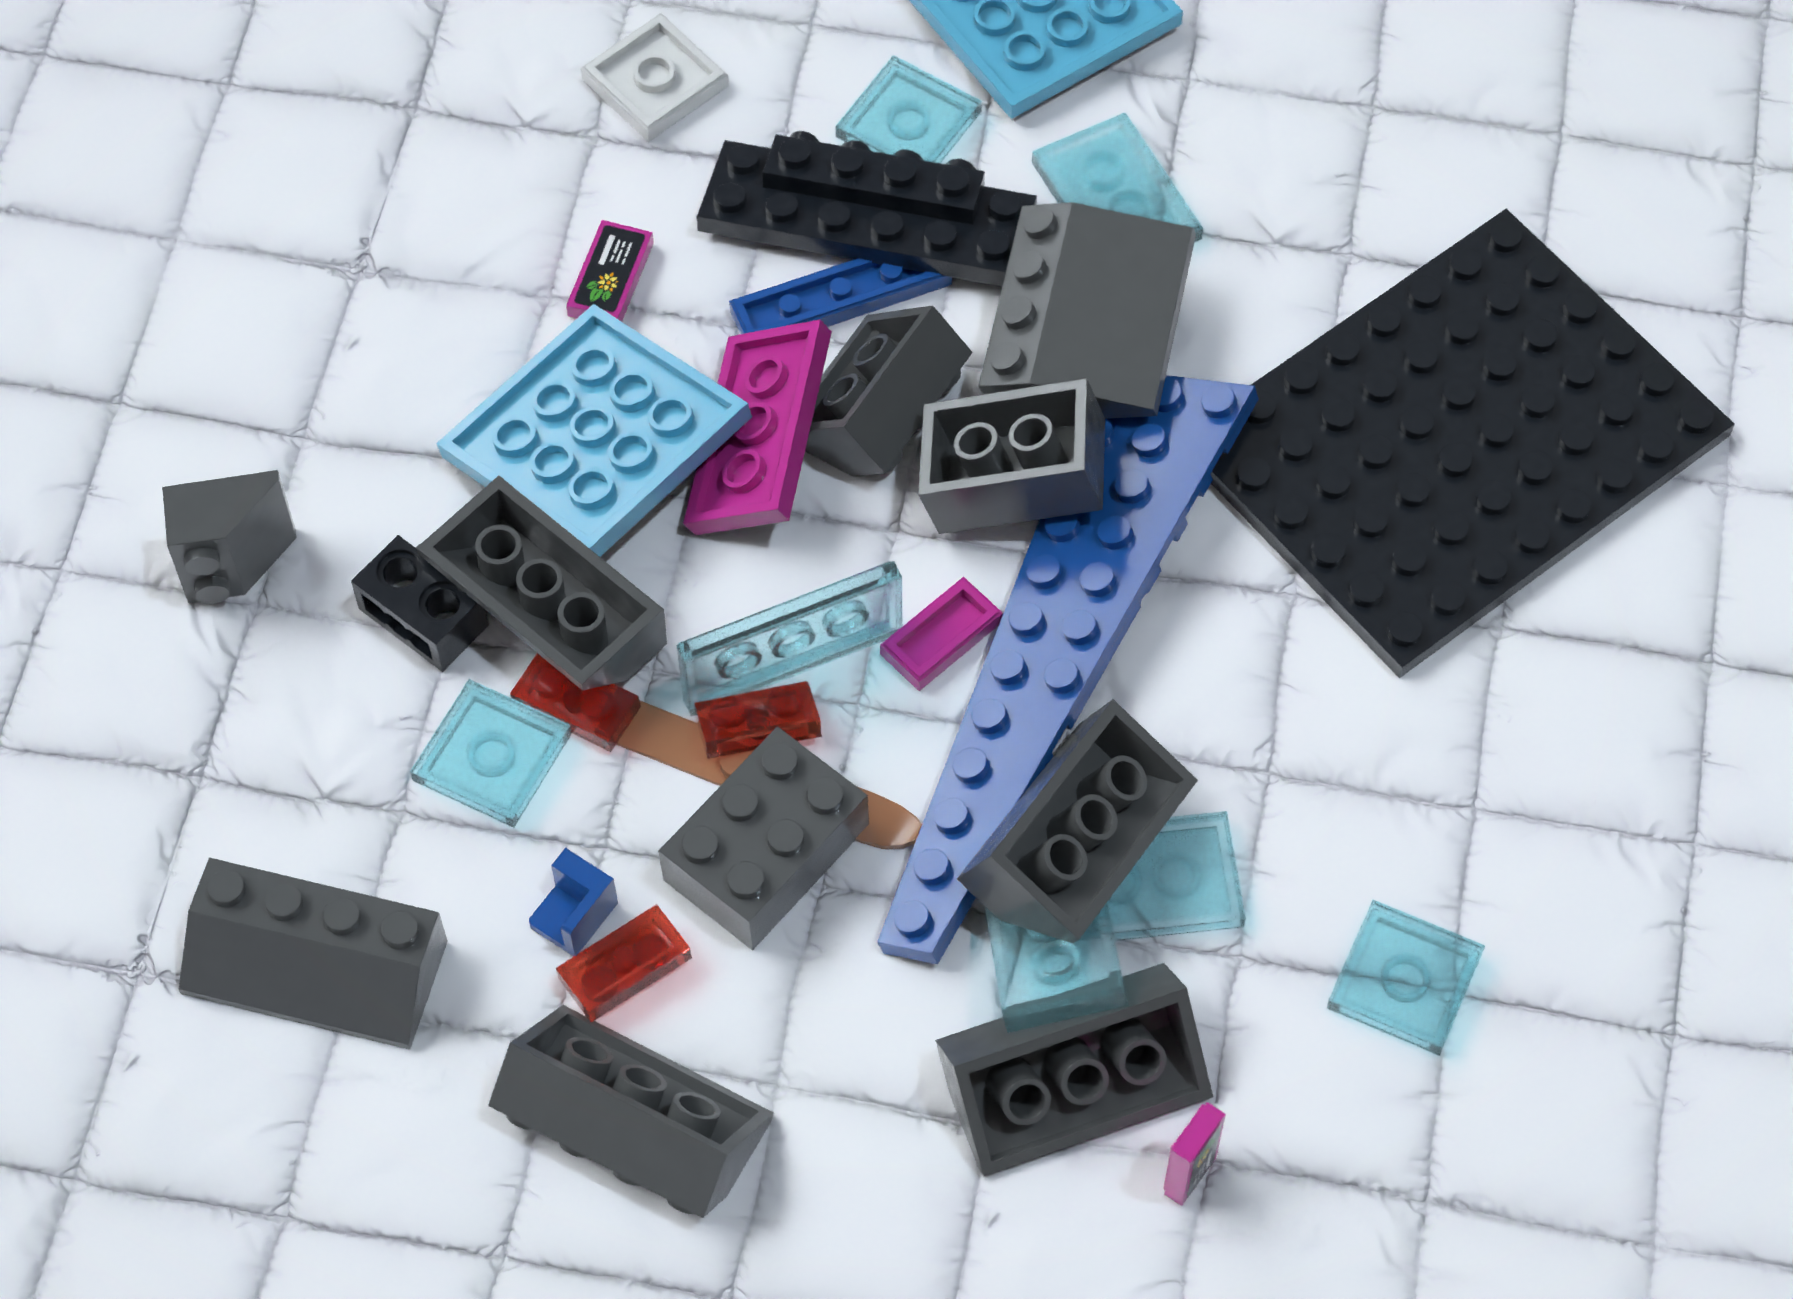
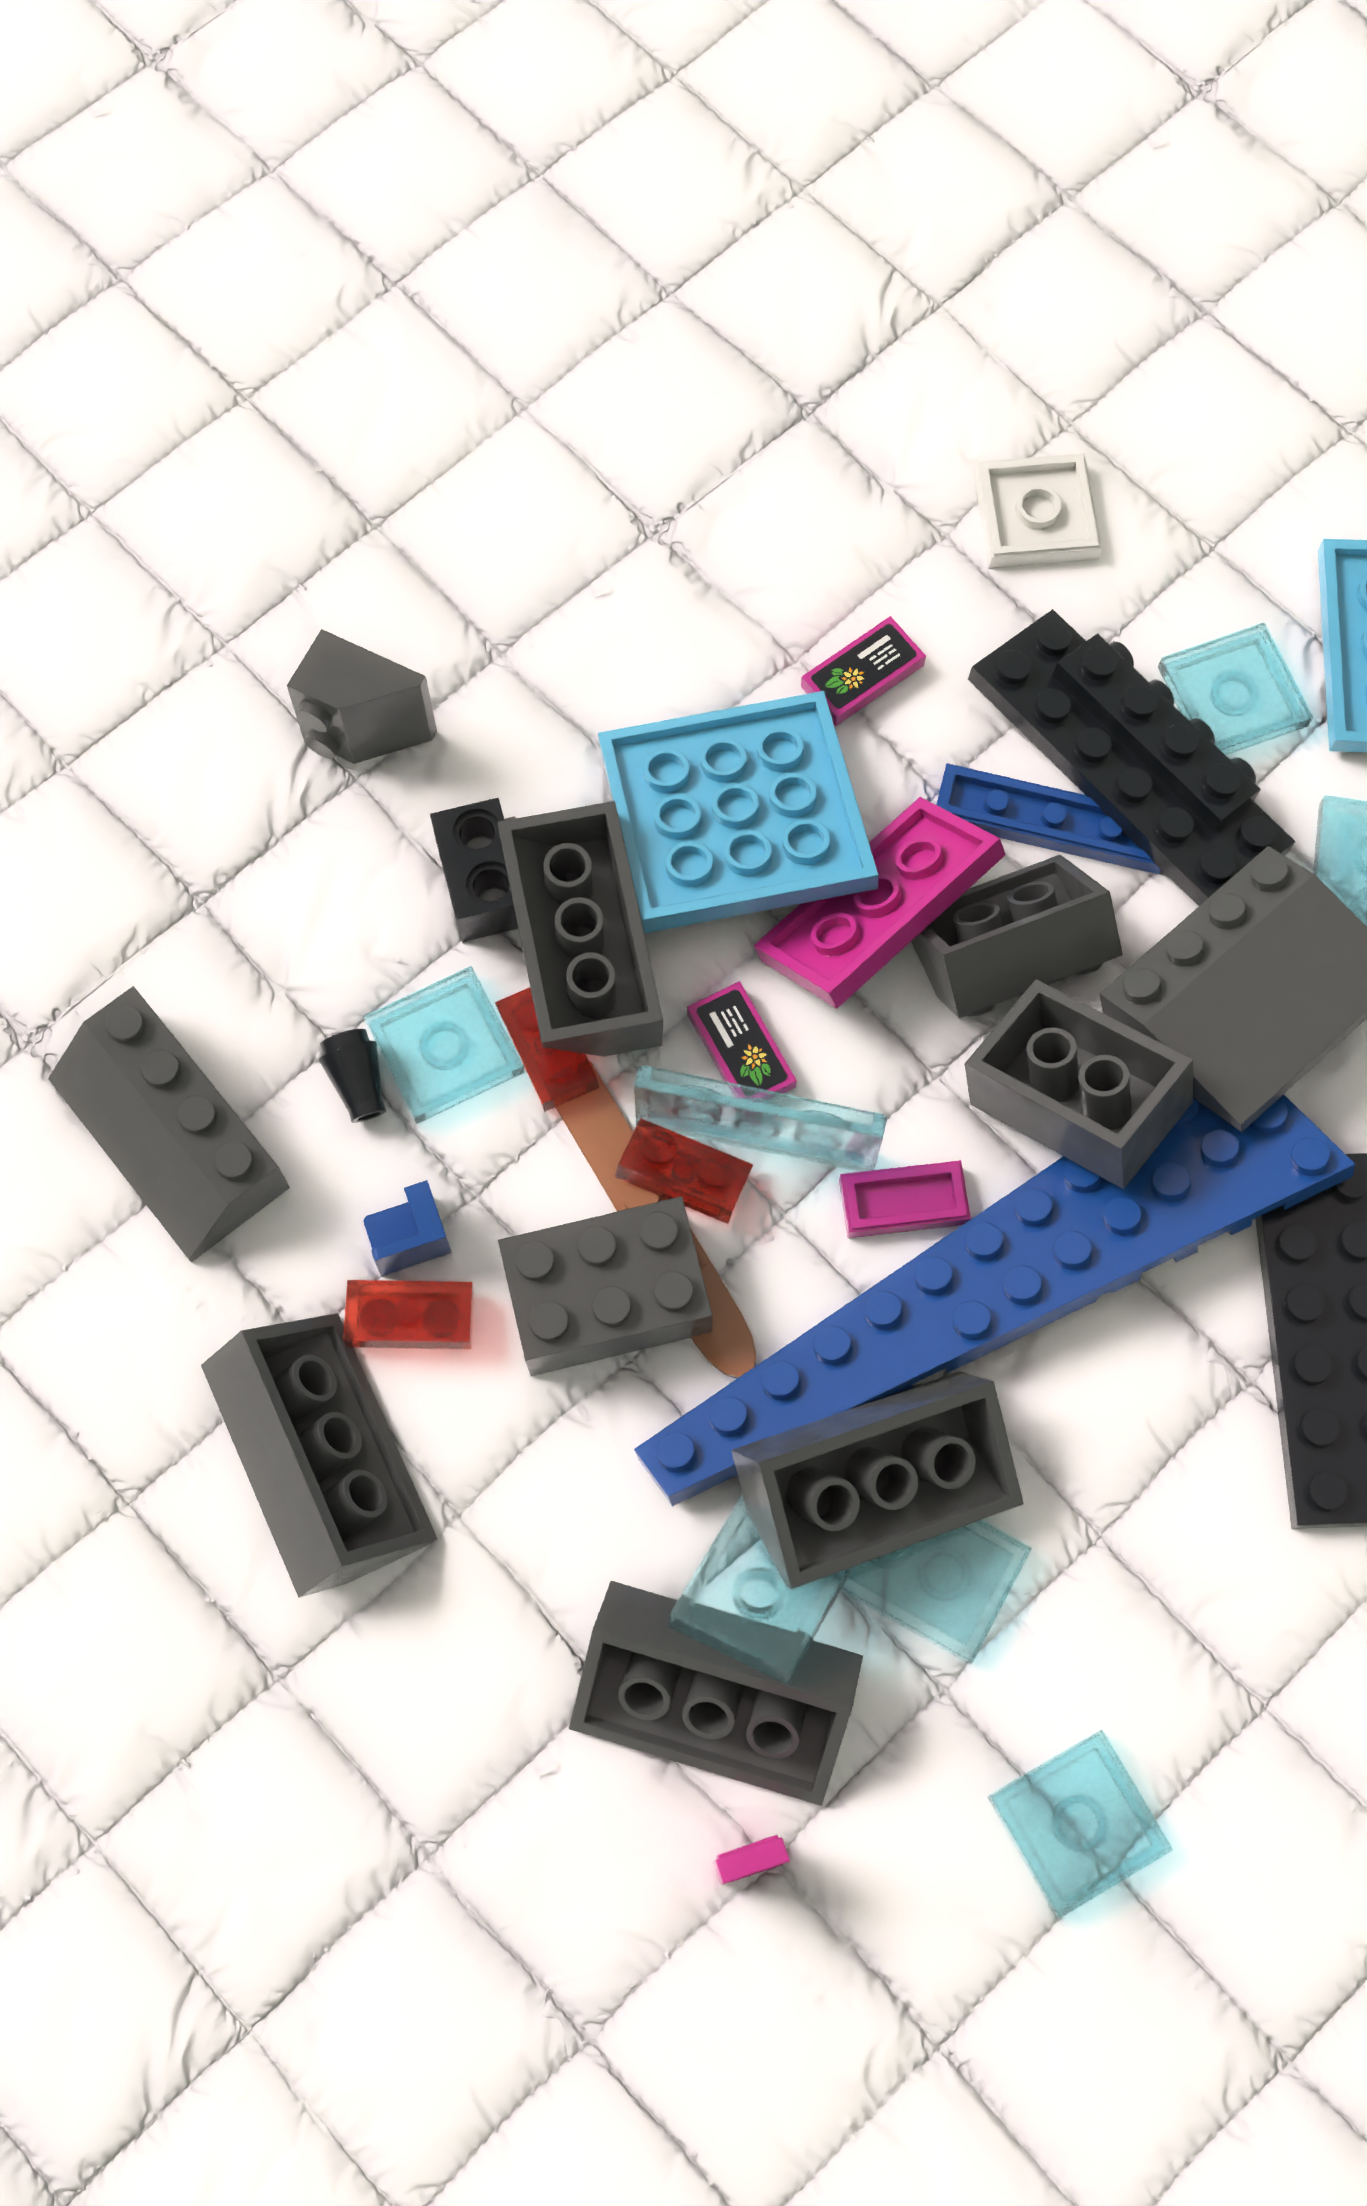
camera: 35 degrees right, 10 degrees up
(436, 816) = (354, 1072): none -> black cone
(718, 596) = (740, 1041): none -> tile

